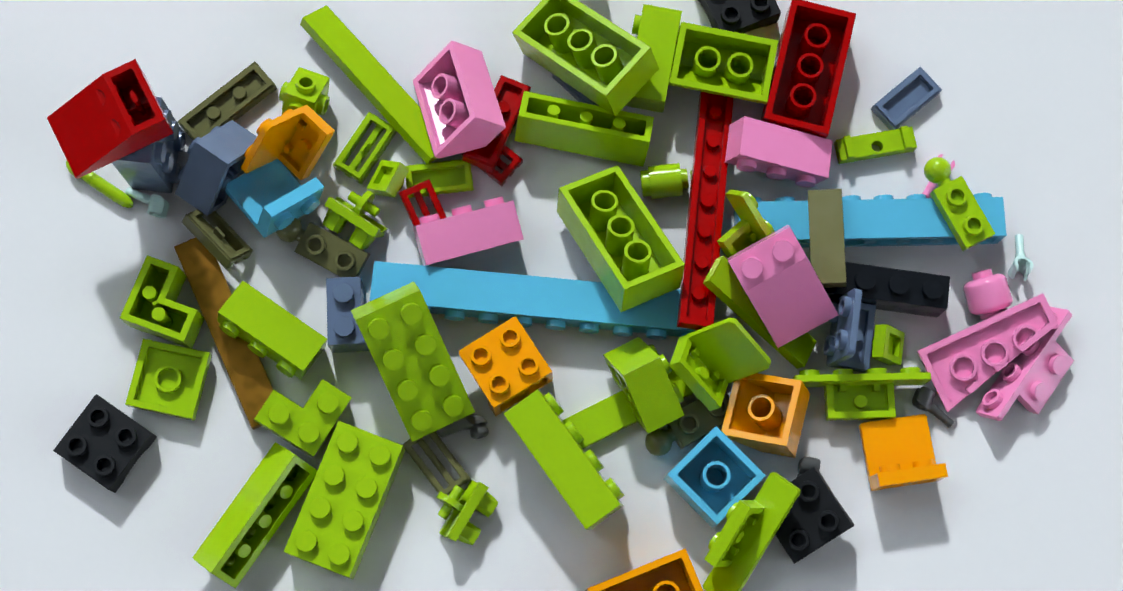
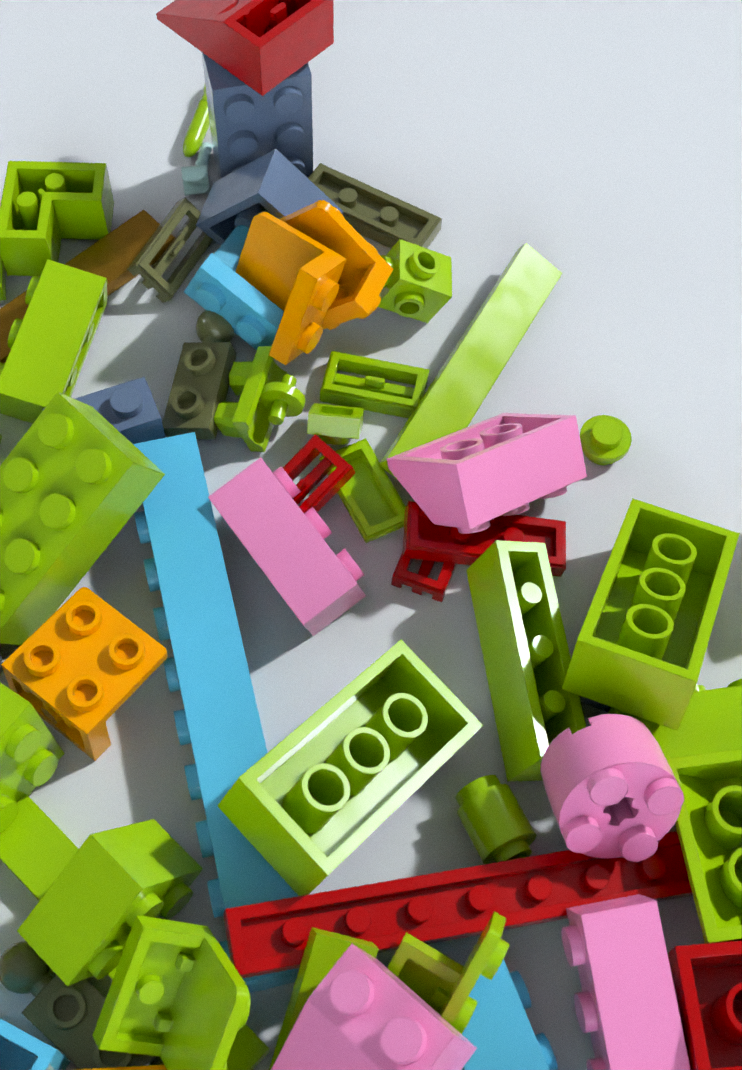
camera: 75 degrees right, 15 degrees down
(296, 163) = (295, 276): none -> light orange bracket
(455, 29) = (605, 439): none -> lime plate
(678, 114) = (611, 788): none -> bright pink brick

